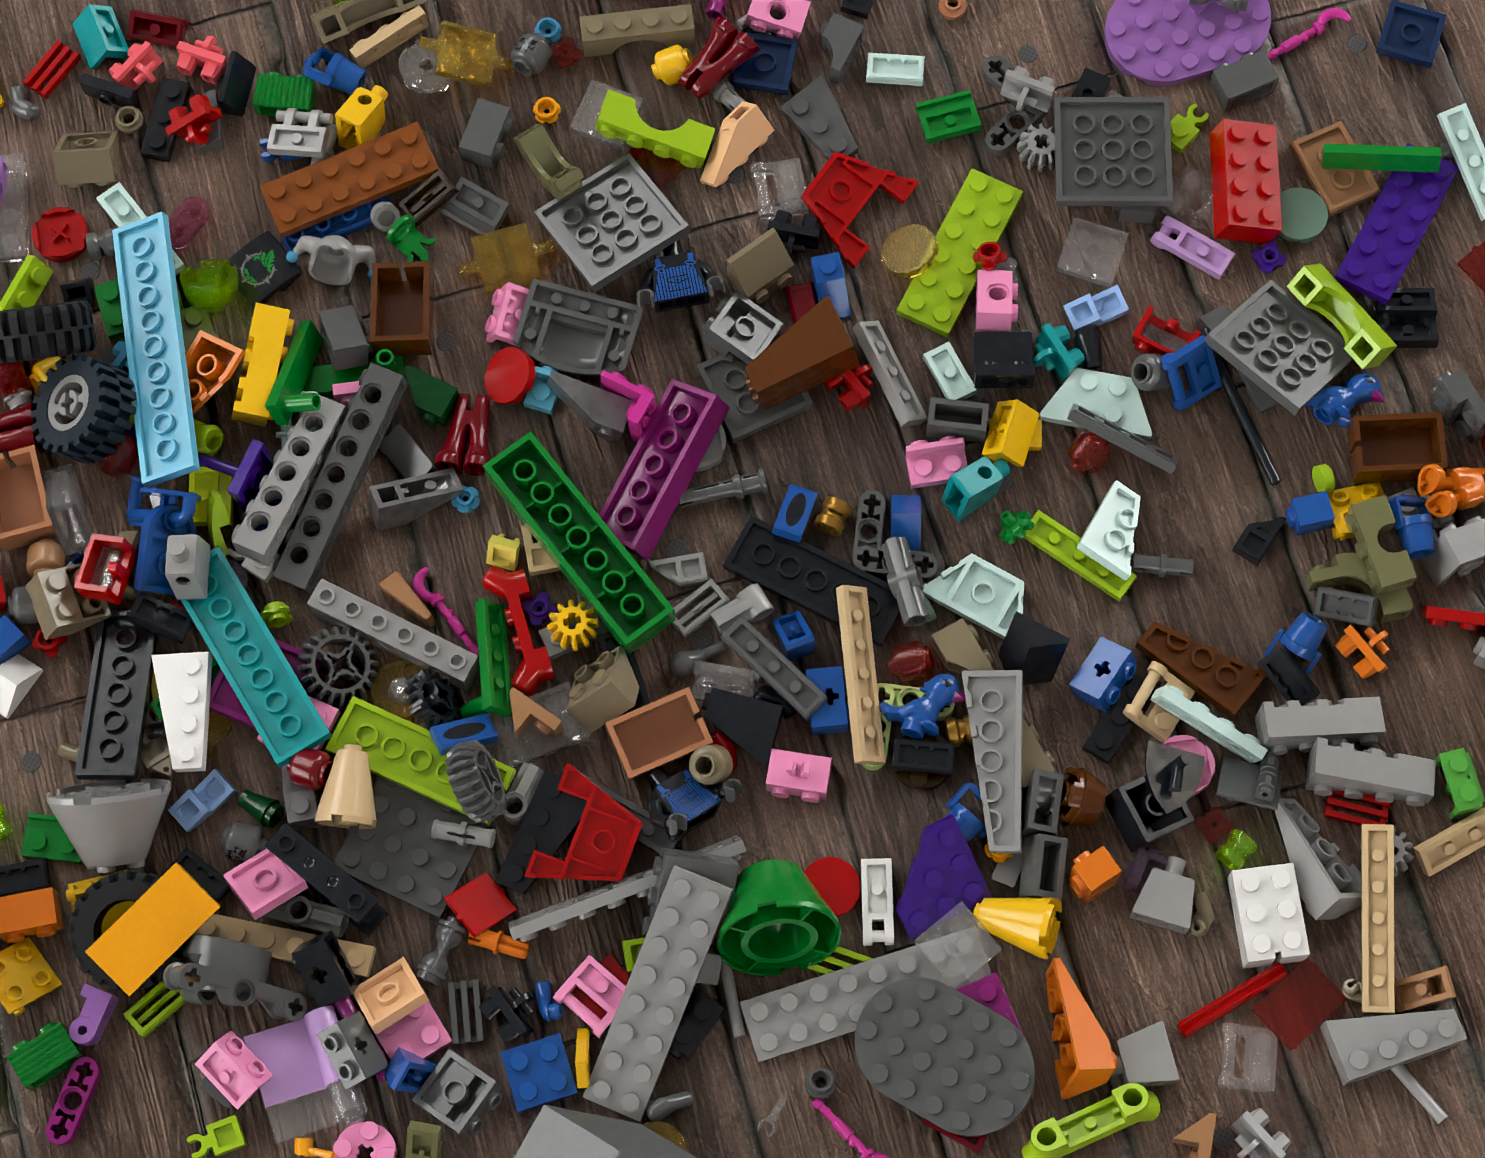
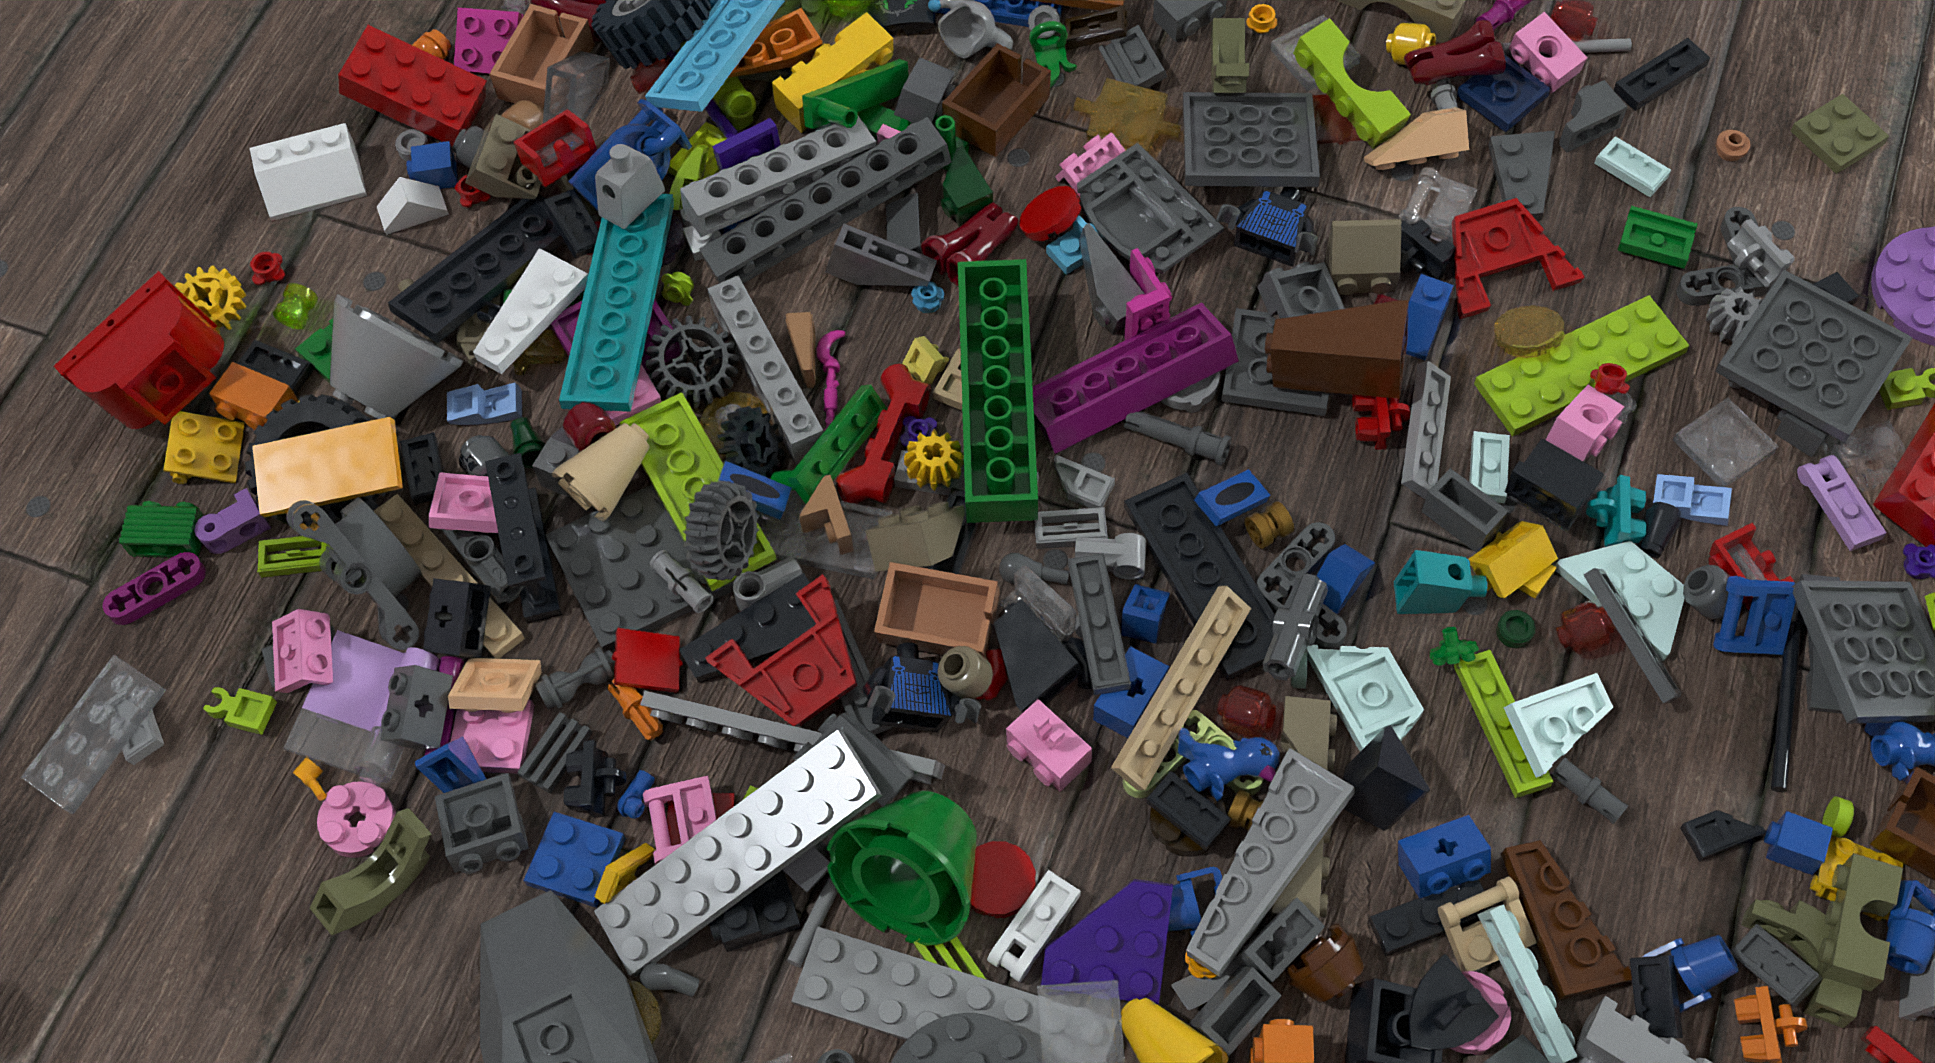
camera: 35 degrees right, 10 degrees down
(934, 461) = (1408, 531): bright pink bracket -> none
(1043, 481) = (1515, 629): none -> dark green tile

